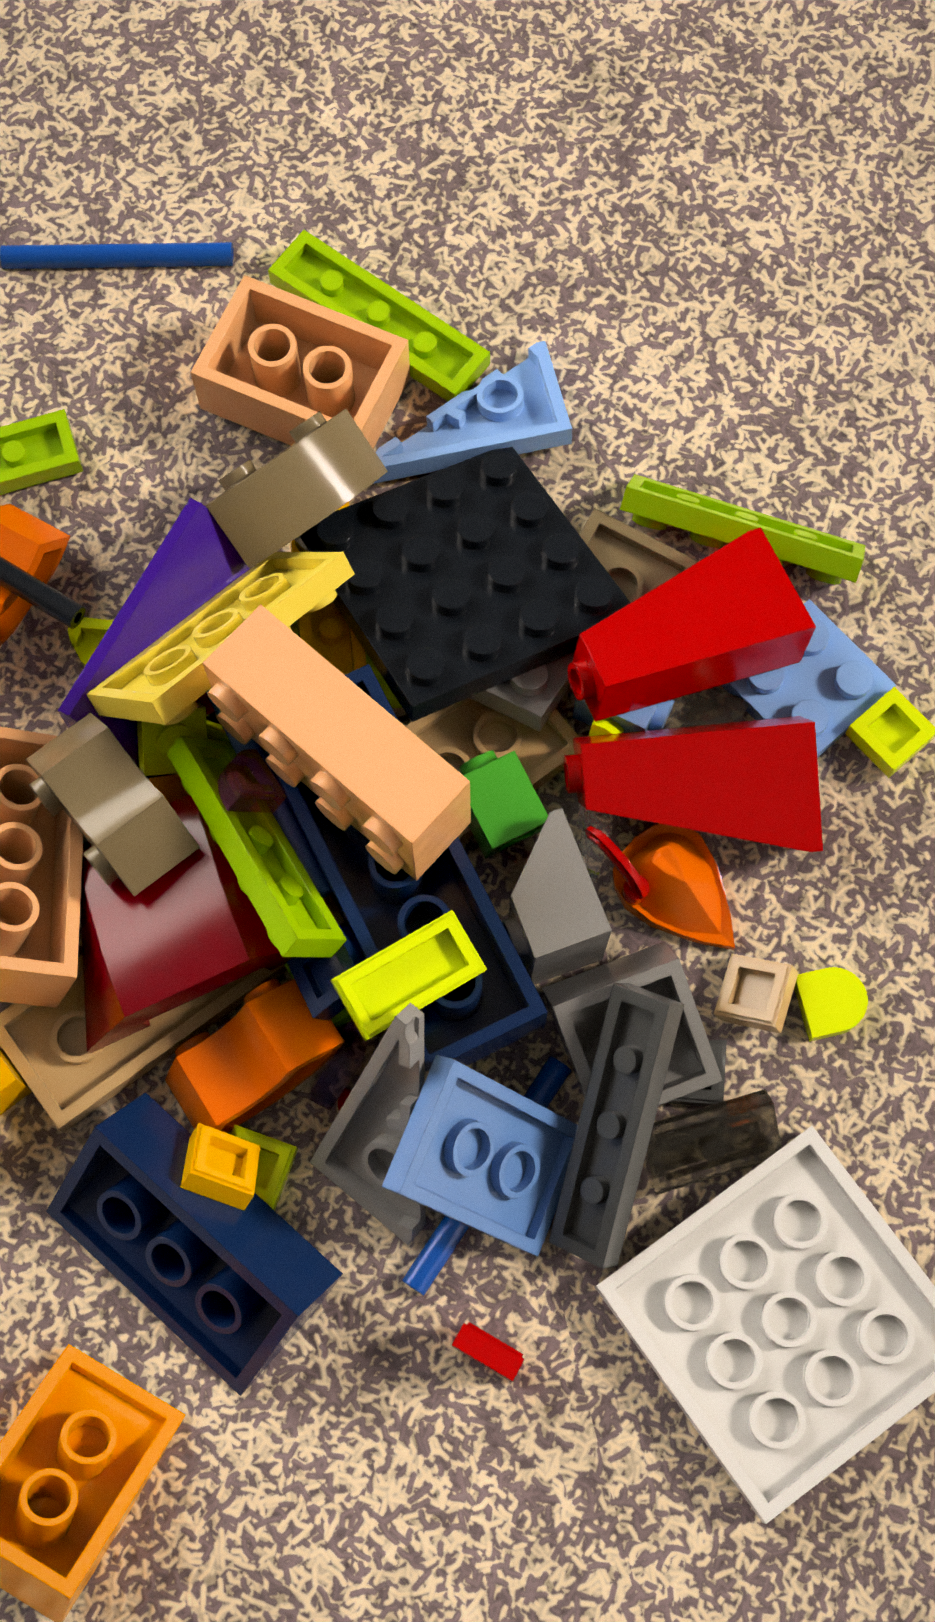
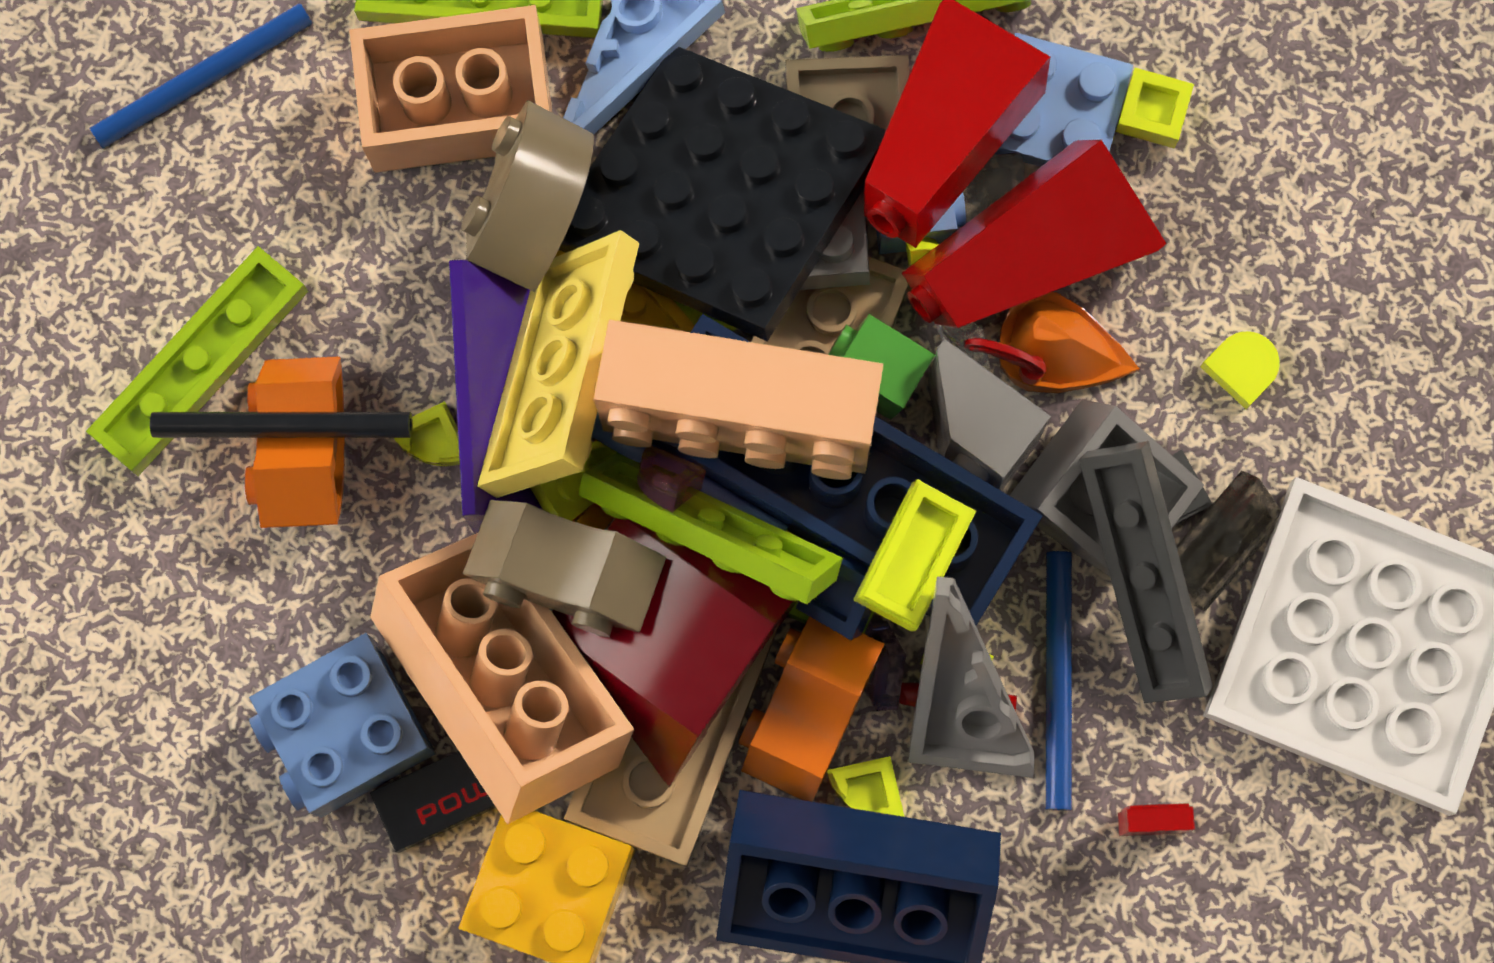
camera: 30 degrees left, 5 degrees up
(221, 1166) = (848, 809): yellow tile -> none
(483, 1156) = (1059, 664): medium blue plate -> none
(756, 993) = (1181, 396): tan tile -> none

